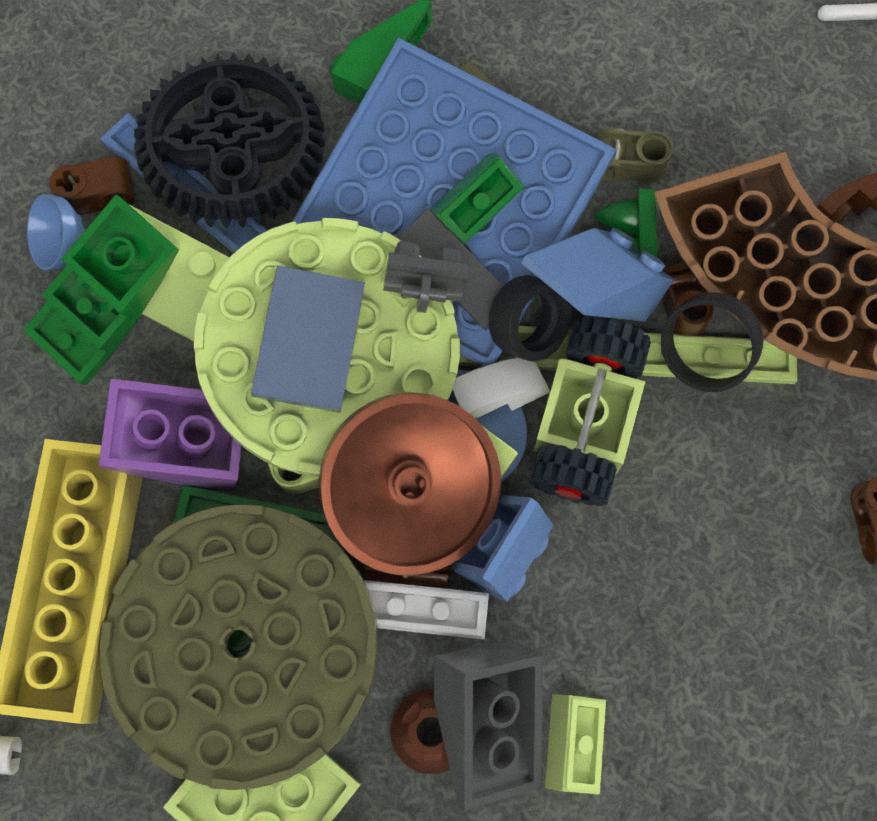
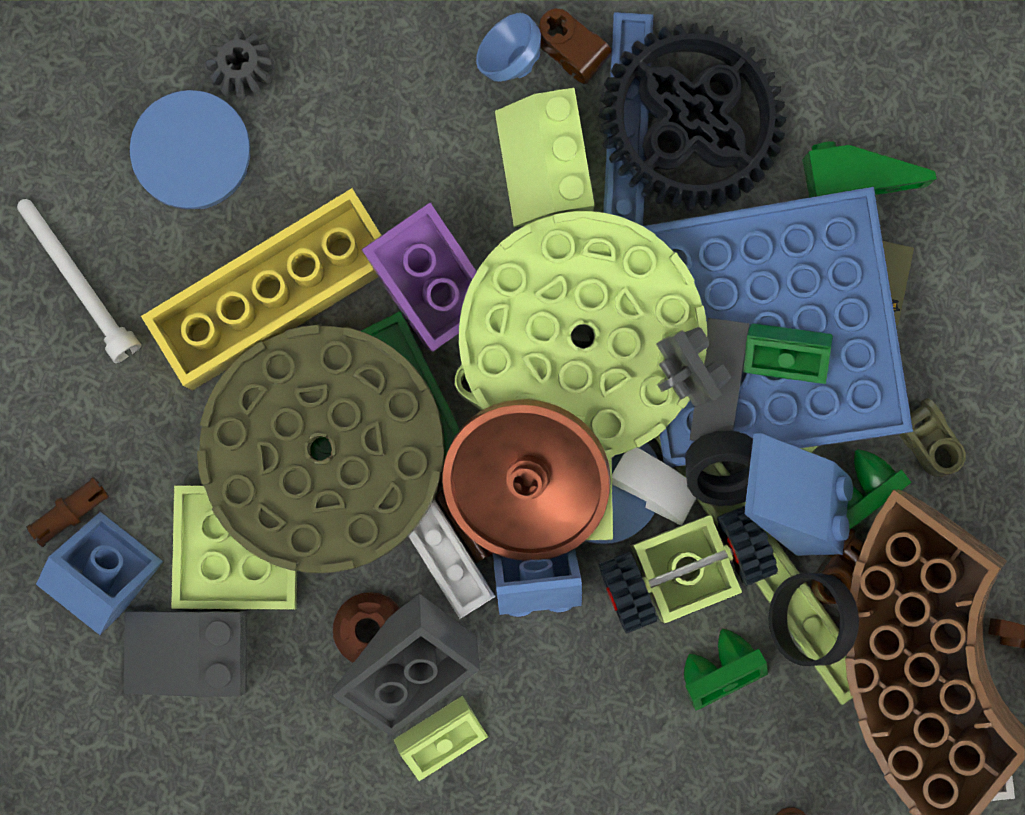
camera: 45 degrees right, 10 degrees up
(101, 290) = (493, 127): green slope -> none
(308, 339) = (573, 321): sand blue tile -> none
(705, 438) = (739, 668): none -> green tile

